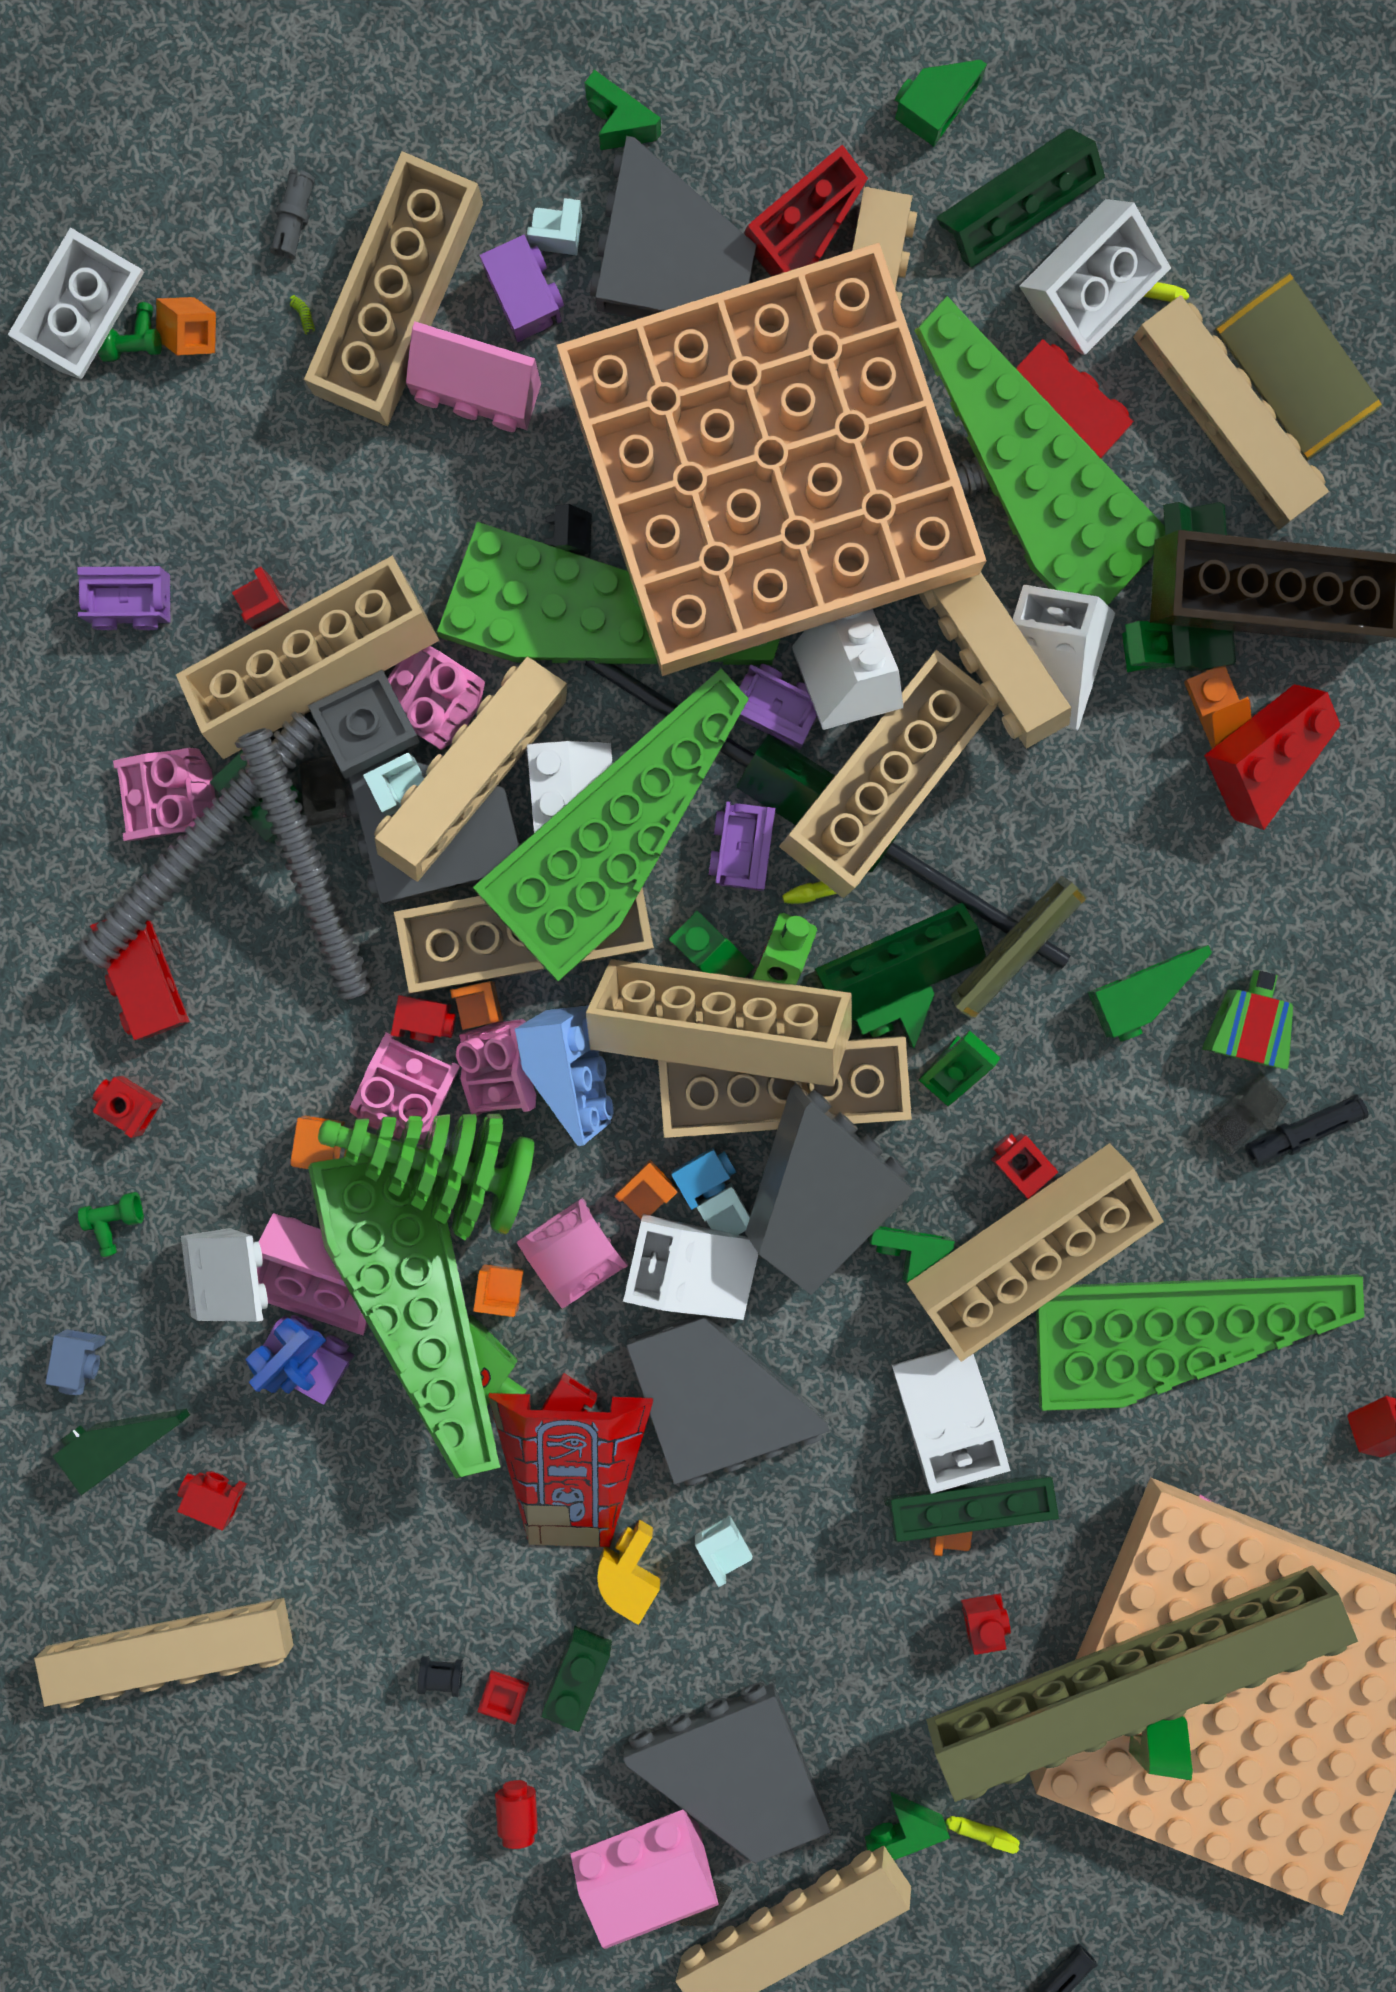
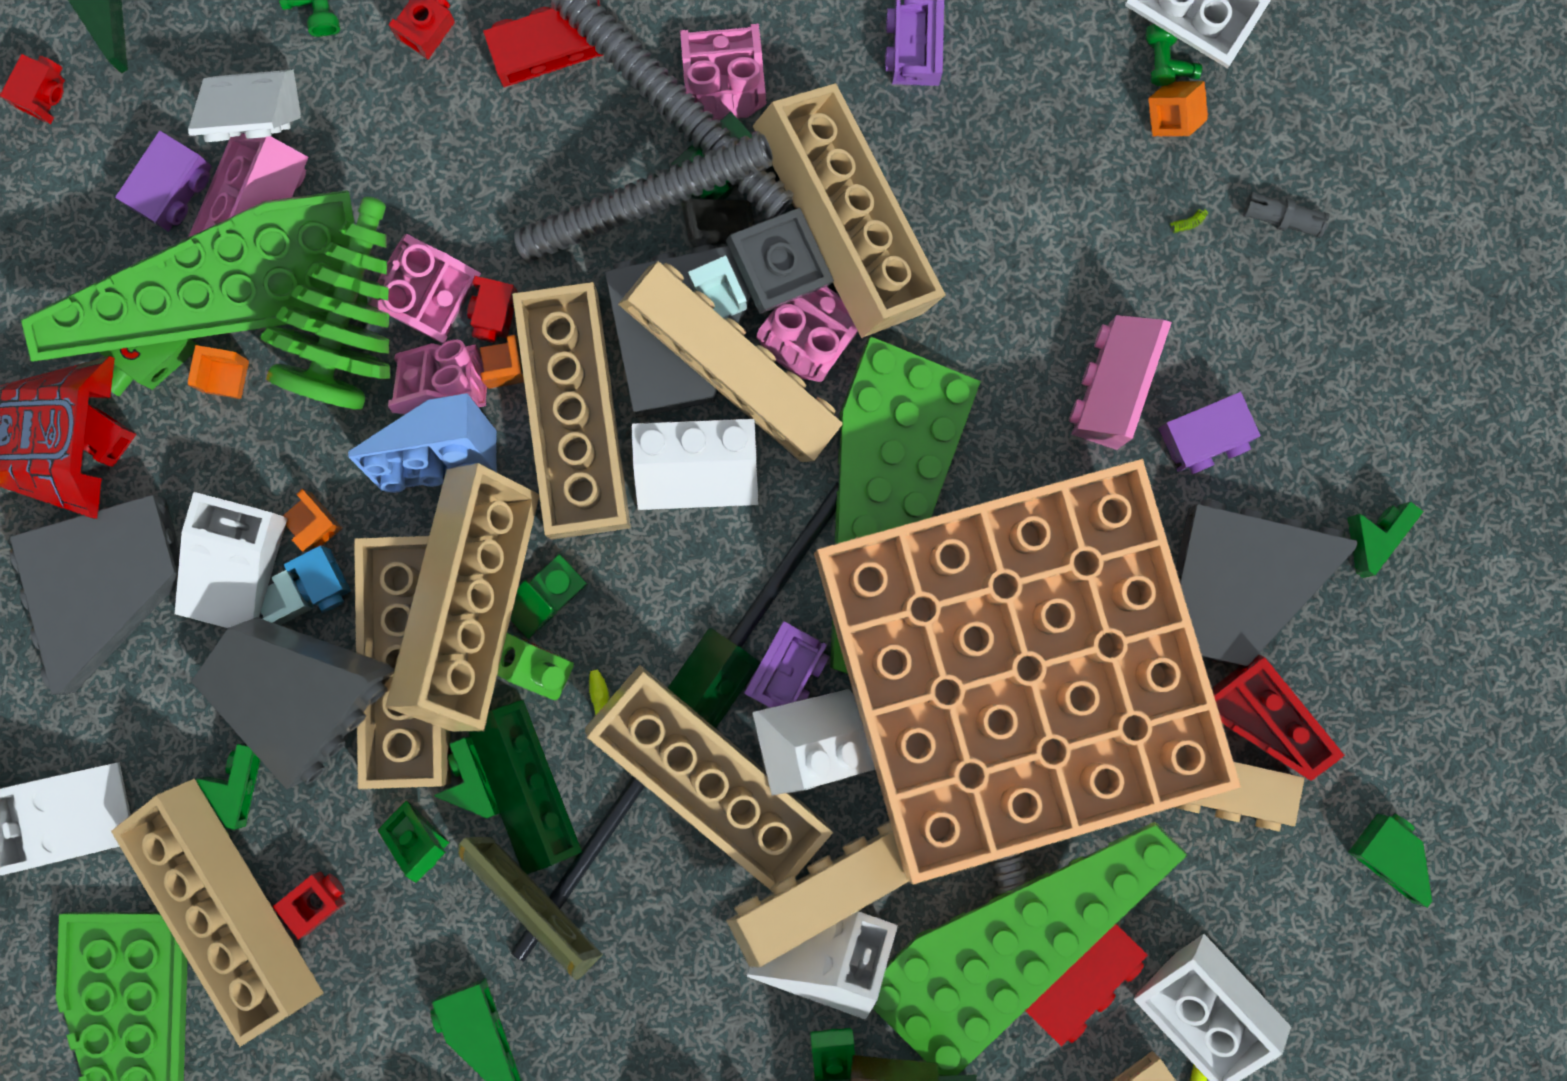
camera: 90 degrees right, 5 degrees down
(260, 600) = (909, 169): red panel -> none
(291, 1364) = (152, 167): blue hips -> none
(307, 1146) = (388, 192): orange panel -> none
(393, 283) = (1211, 308): tan brick -> none
(557, 229) = (1268, 470): light aqua panel -> none
(571, 529) = (969, 472): black tile -> none
(571, 1253) = (252, 445): bright pink slope -> none
(592, 858) = (634, 477): bright green wing -> none
(743, 847) = (647, 631): medium lavender hinge -> none
(1023, 195) = (1297, 941): dark green panel -> none

